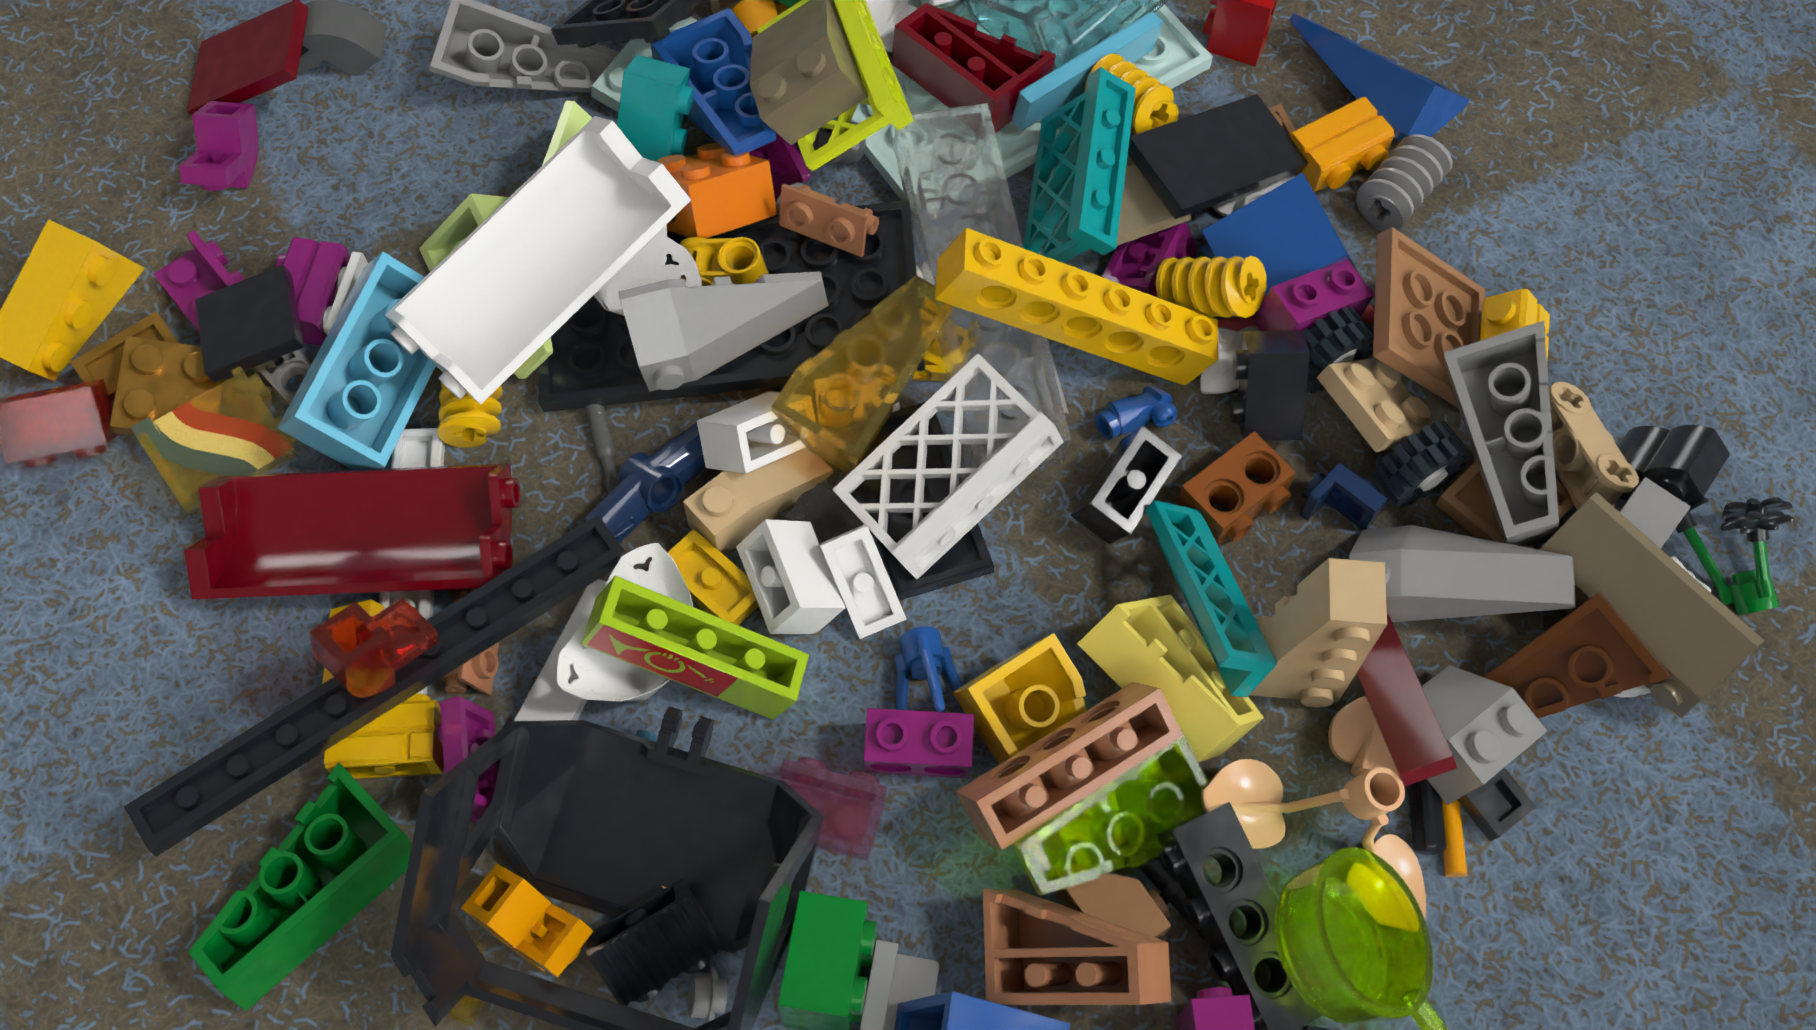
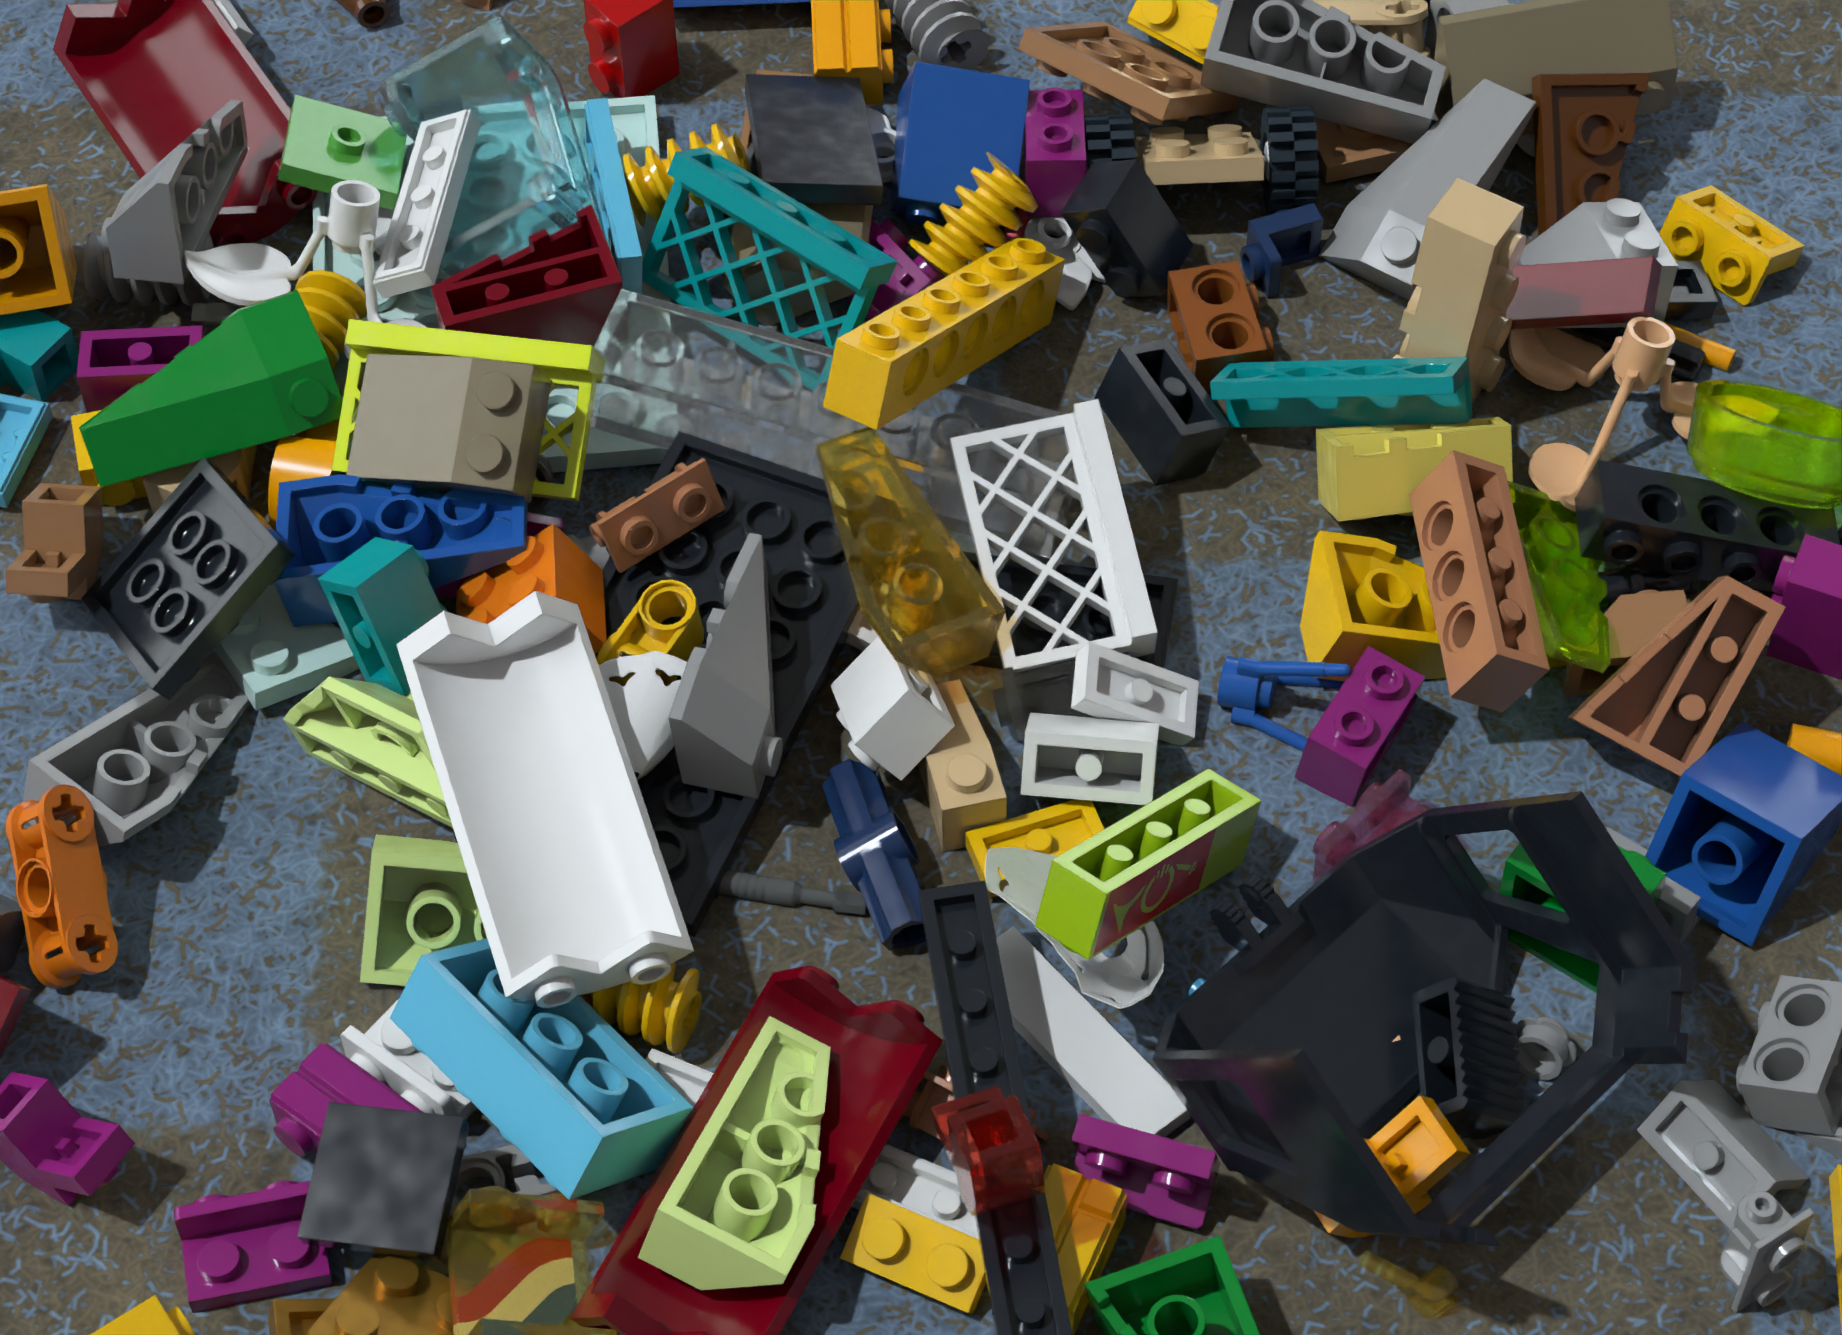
camera: 60 degrees left, 10 degrees down
(338, 520) = (751, 1176): none -> yellowish green wedge
(389, 60) = (61, 887): none -> orange piece
(1133, 412) = (1061, 376): blue arm -> none
(1576, 821) = (1729, 241): none -> yellow bracket

